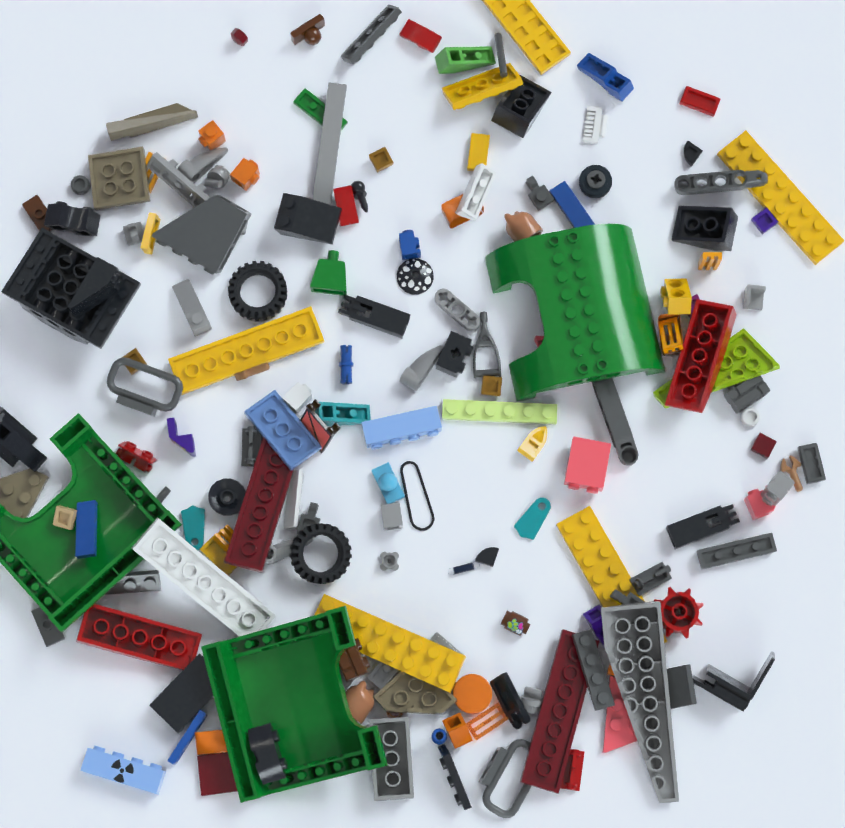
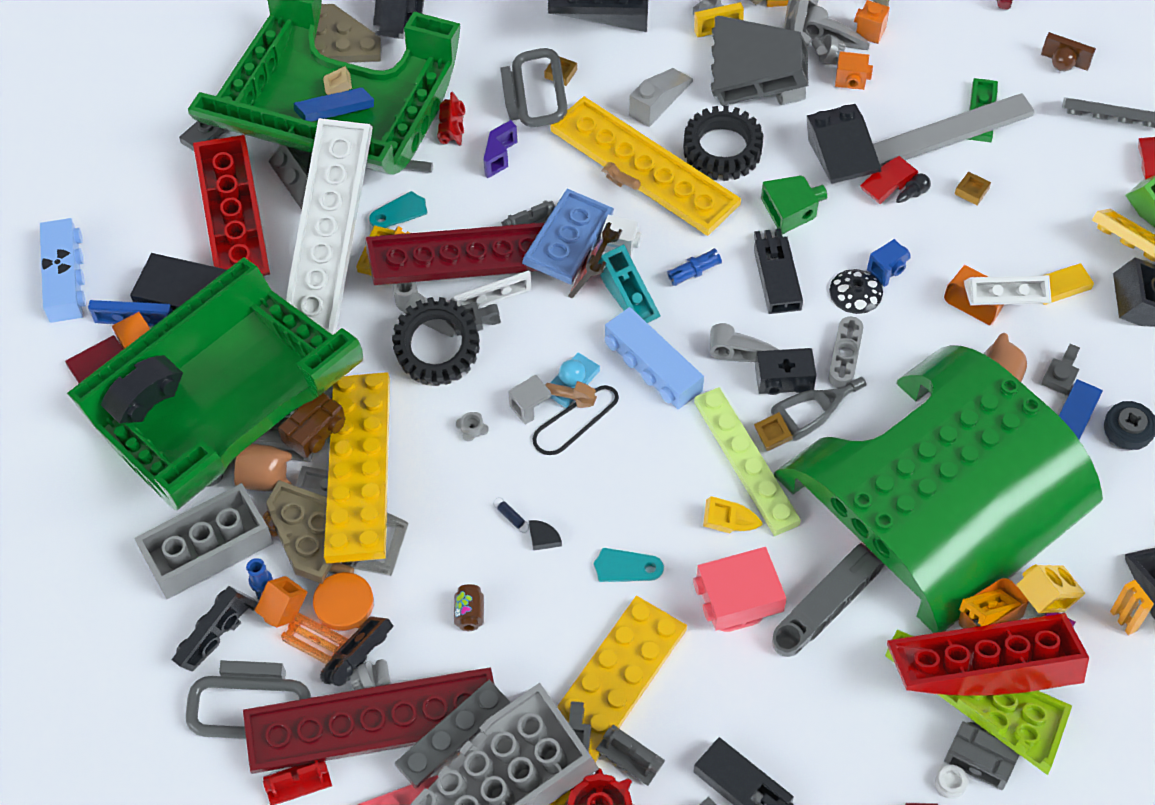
camera: 65 degrees right, 20 degrees down
(223, 488) = (452, 213): black dish -> none
(406, 486) = (582, 393): none -> medium nougat bar
(754, 297) = (1126, 697): light grey panel -> none

